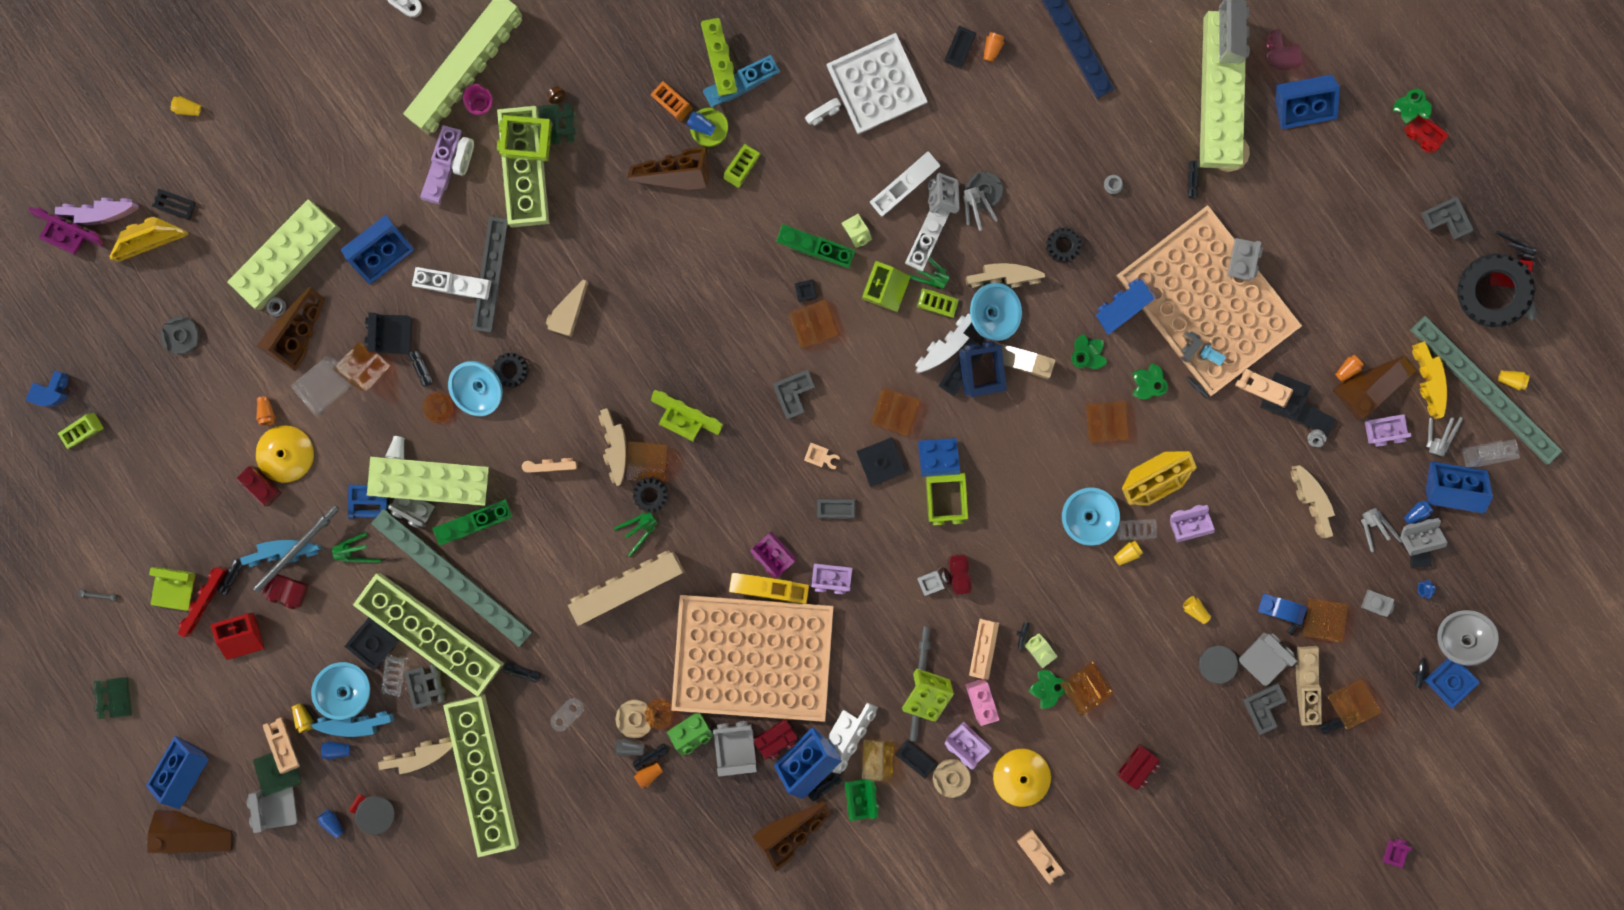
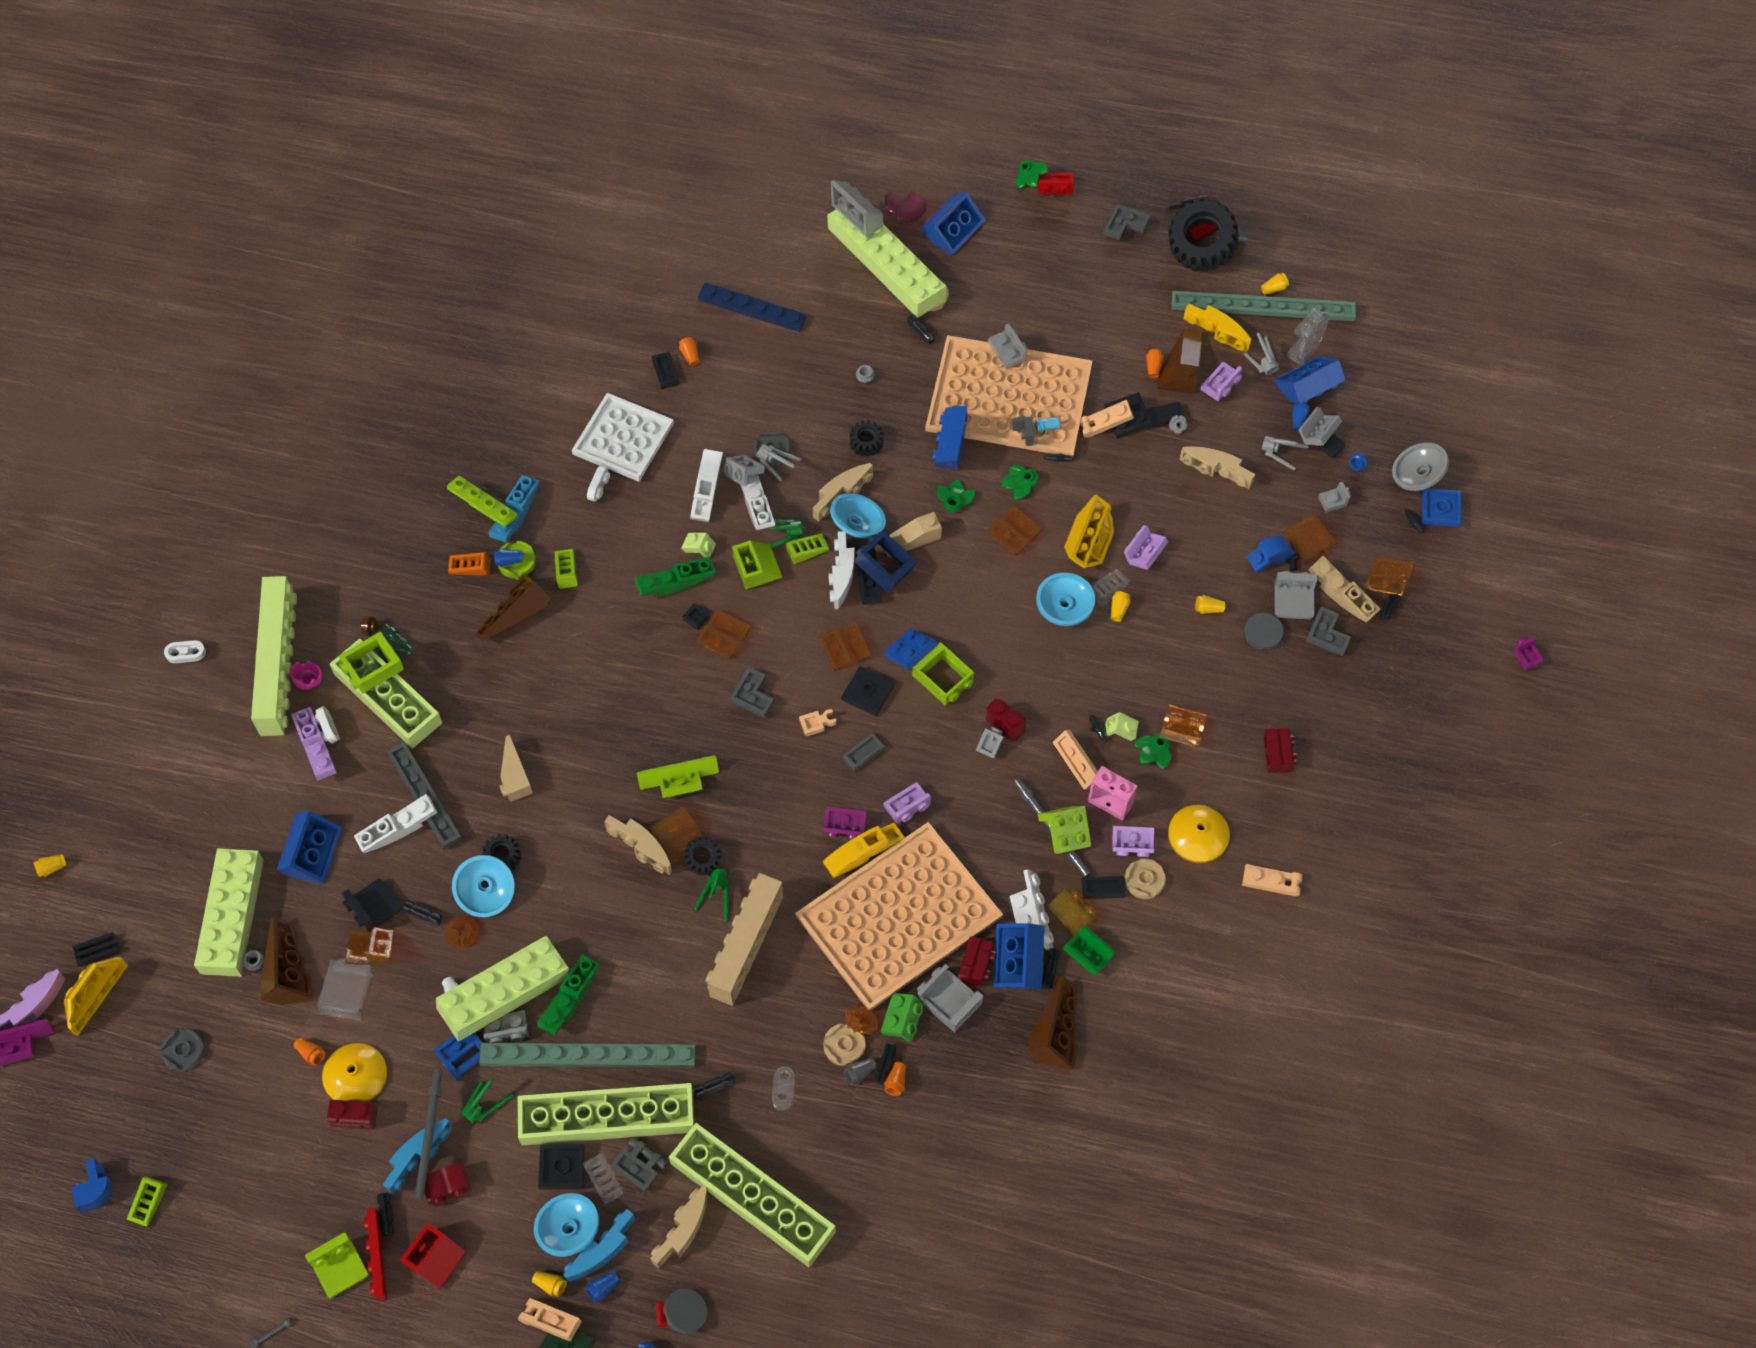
camera: 35 degrees left, 25 degrees down
(549, 465) = (598, 900): light nougat plate -> none

